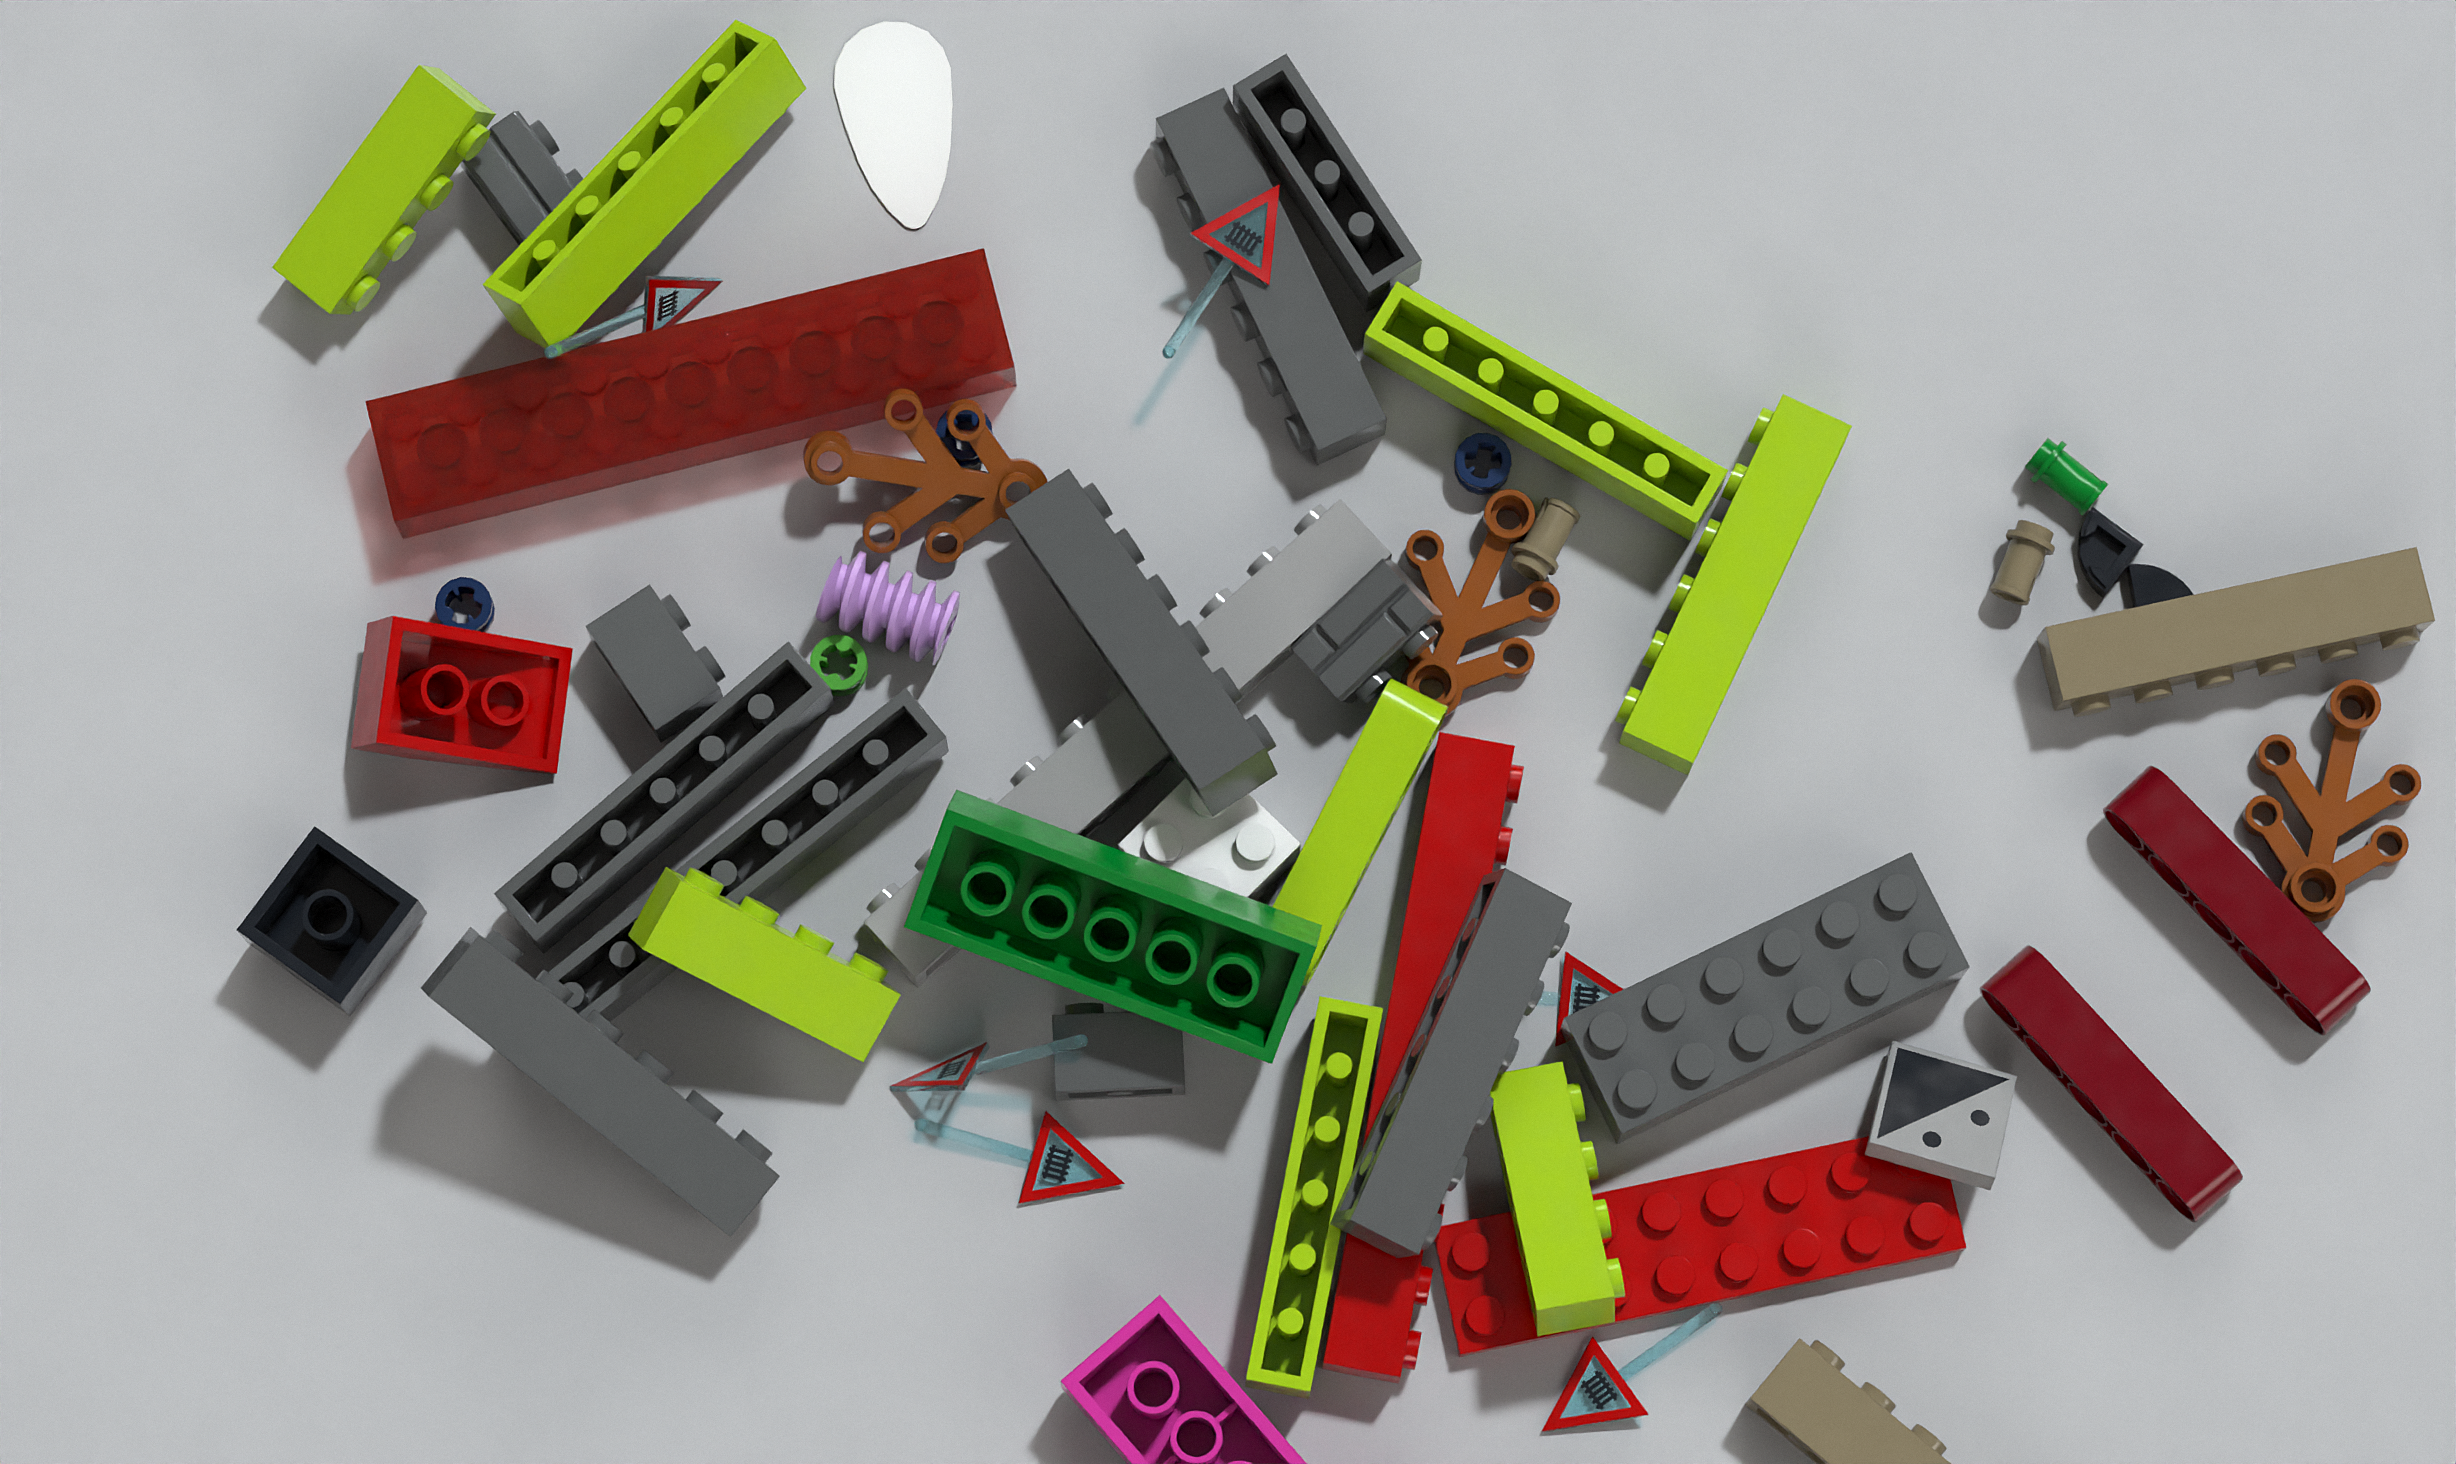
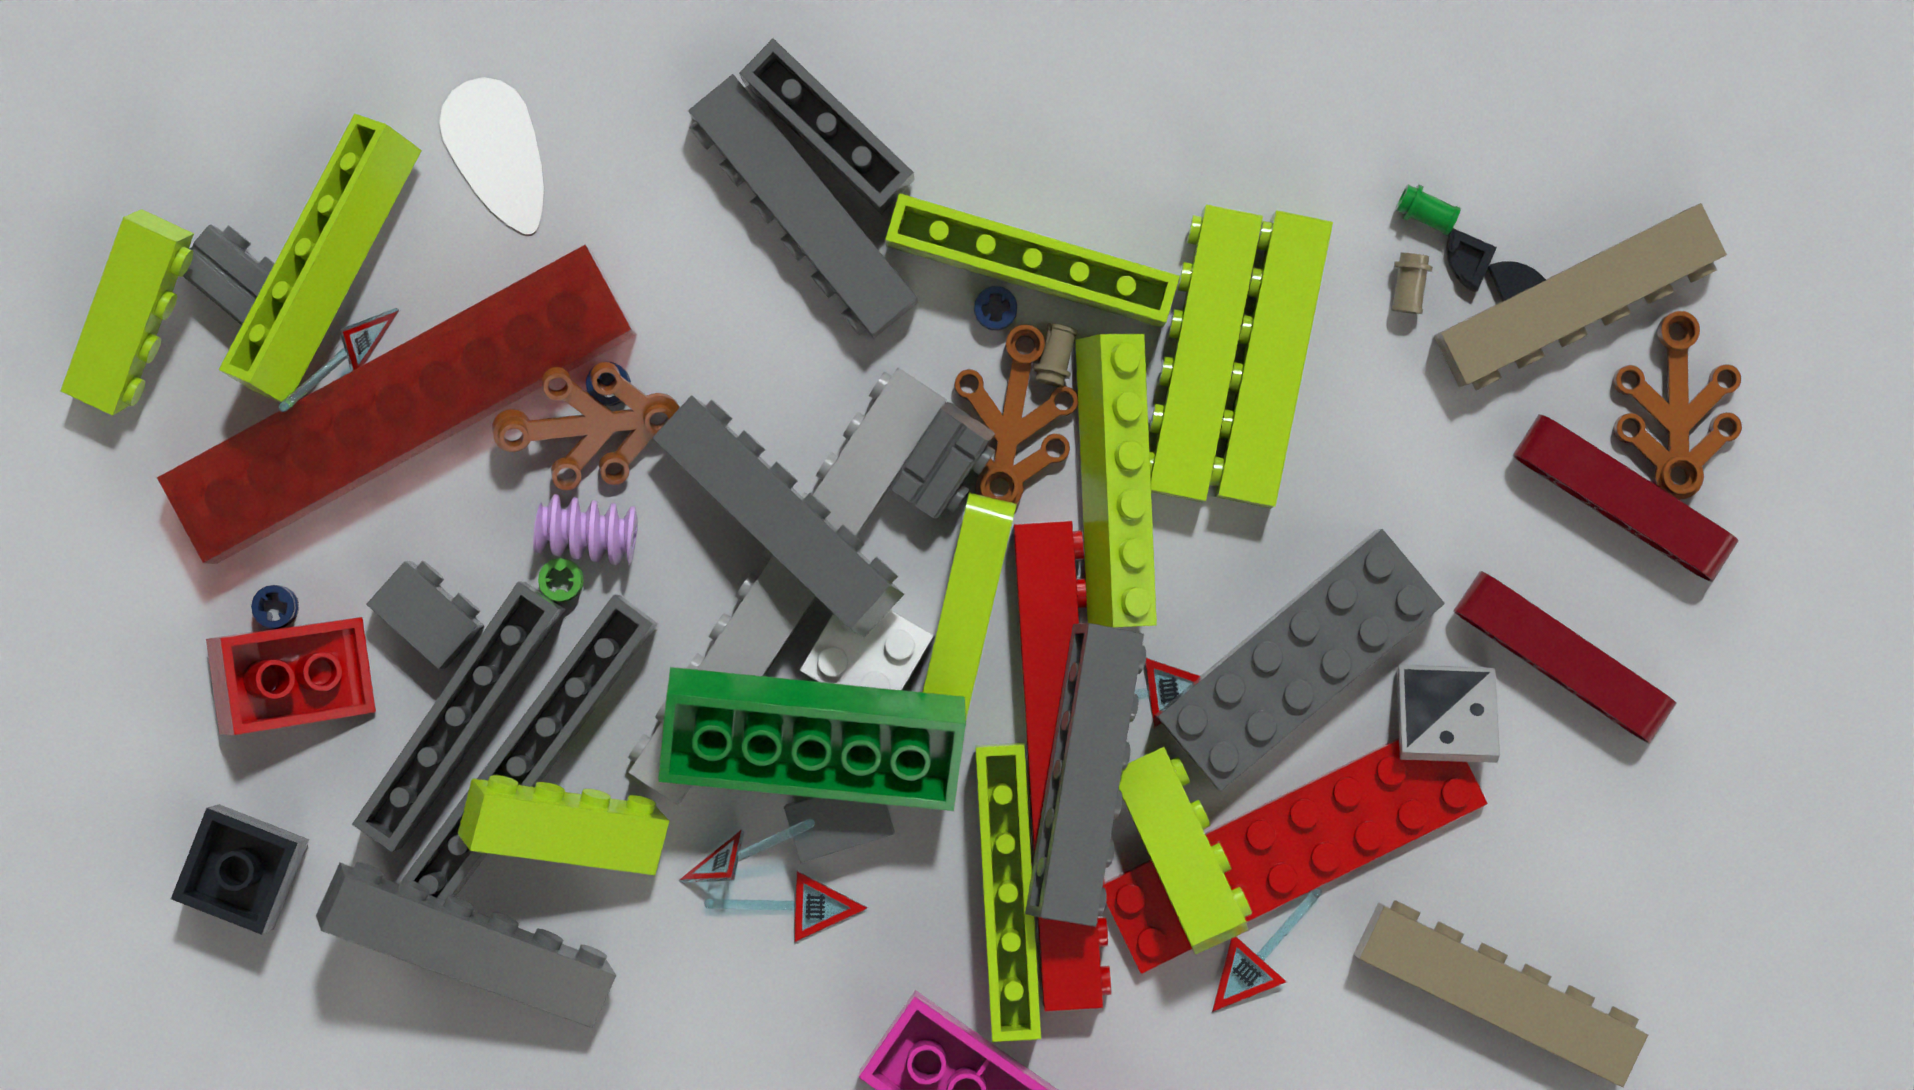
camera: 10 degrees left, 10 degrees up
(1244, 240) = (776, 188): piece -> none
(1585, 707) = (1116, 480): none -> lime brick
(1821, 613) = (1272, 360): none -> lime brick

